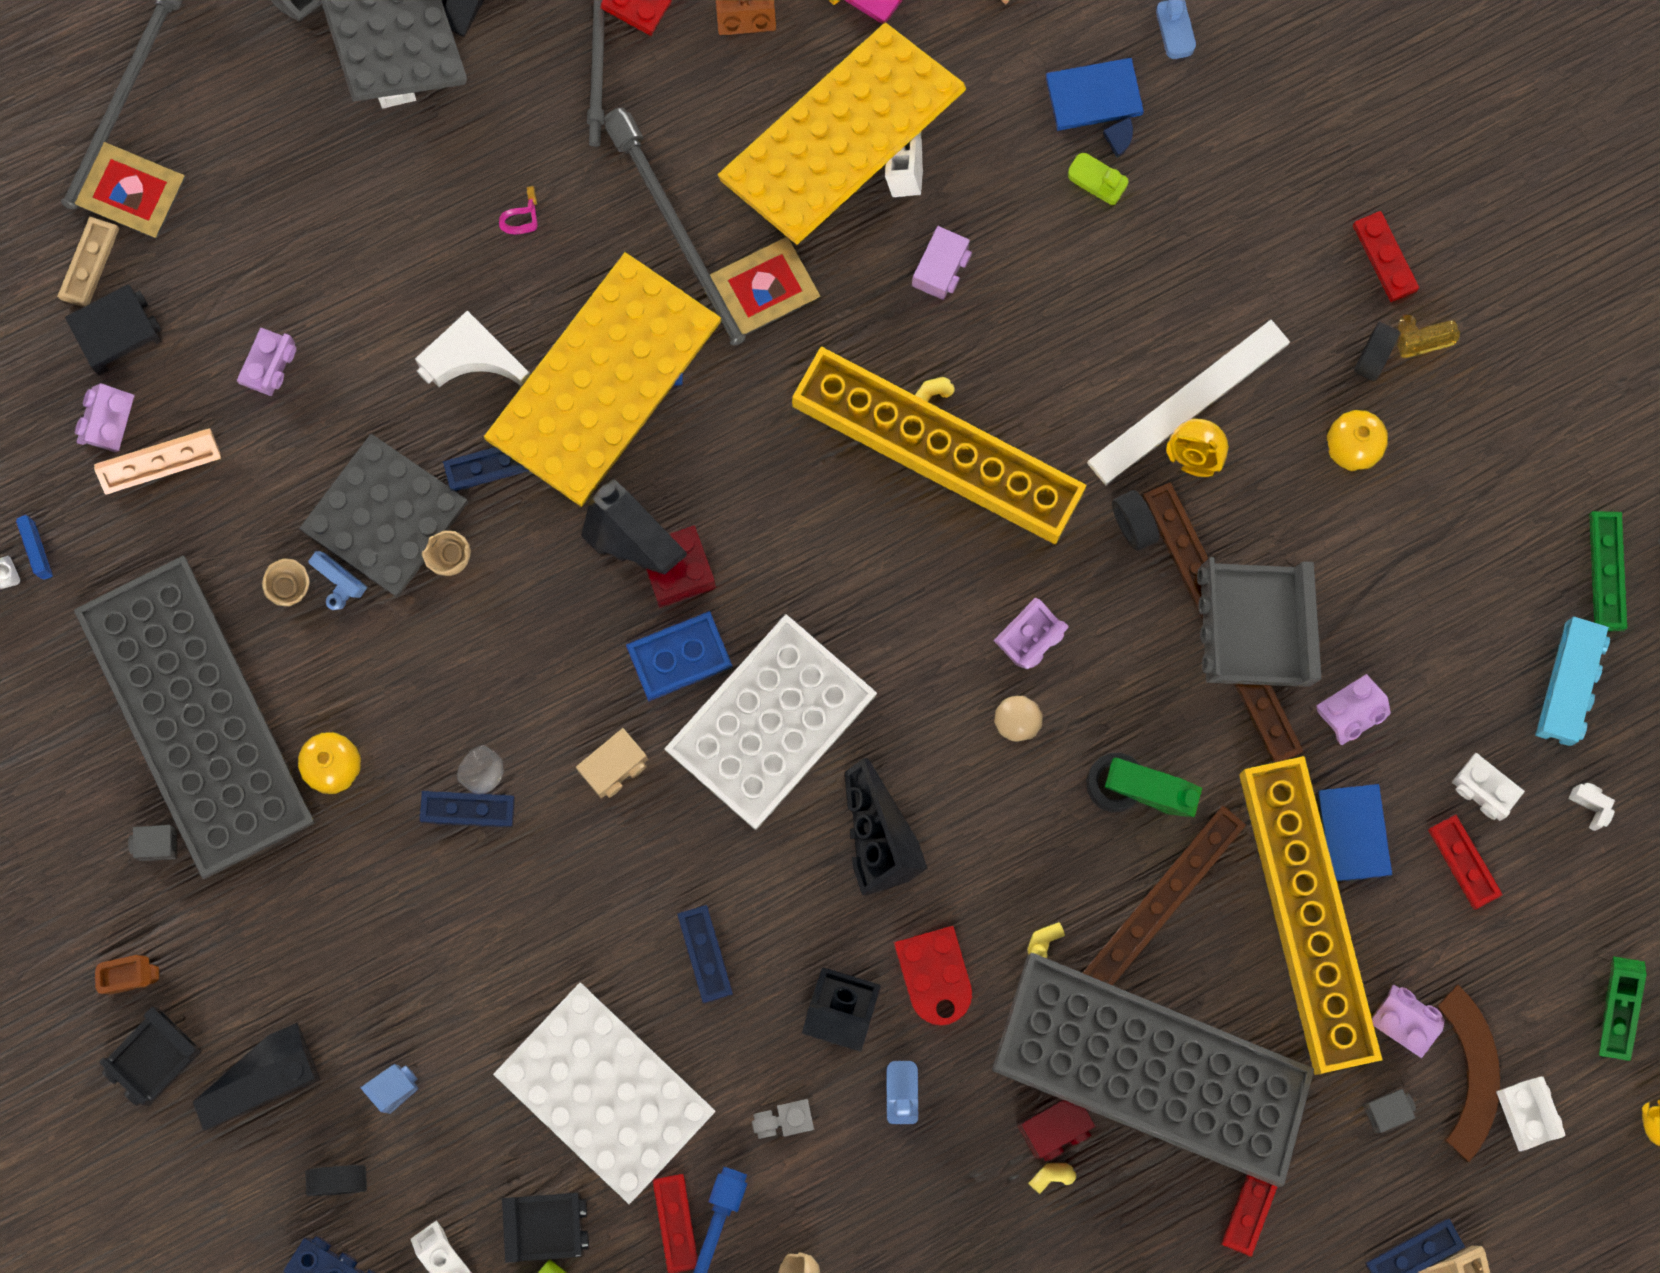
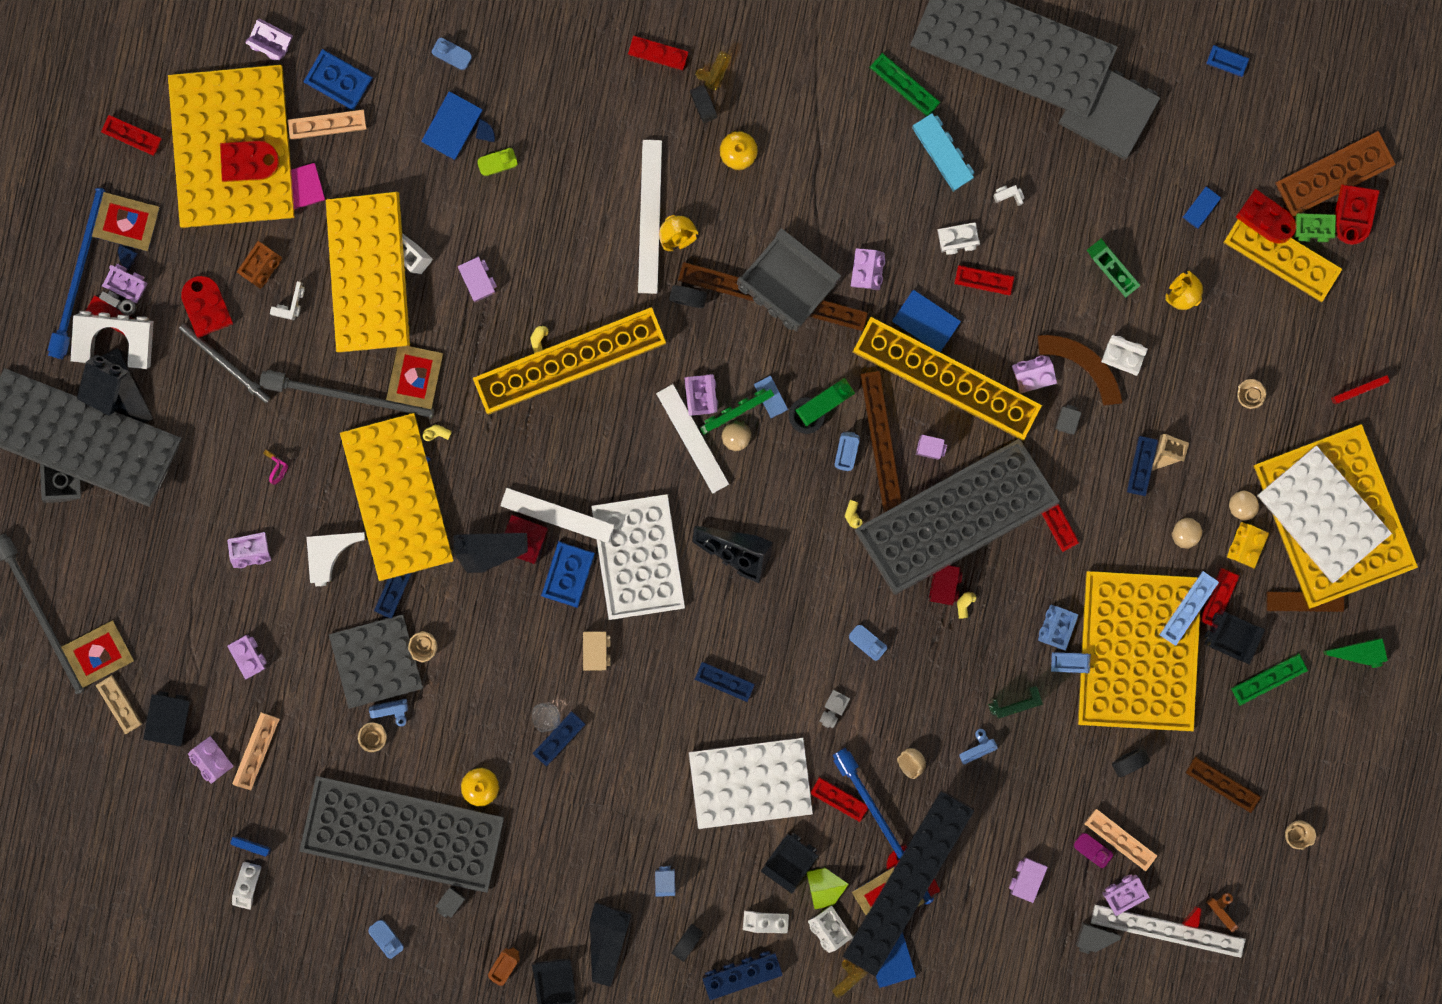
camera: 50 degrees left, 10 degrees up
(46, 802) = (385, 938): none -> medium blue piece
(396, 261) = (248, 550): none -> lavender bracket
(721, 362) = (435, 431): none -> light yellow arm
(728, 87) = (283, 312): none -> white bracket
(740, 584) = (557, 515): none -> white tile
(841, 1009) = (804, 638): black slope -> none
(935, 973) = (824, 580): red plate -> none
(969, 670) = (692, 439): none -> white tile
(1019, 680) = (729, 413): none -> green wing
(1100, 721) = (775, 404): none -> medium blue tile
(1115, 867) = (847, 451): none -> medium blue piece
(1210, 966) = (931, 447): none -> lavender brick

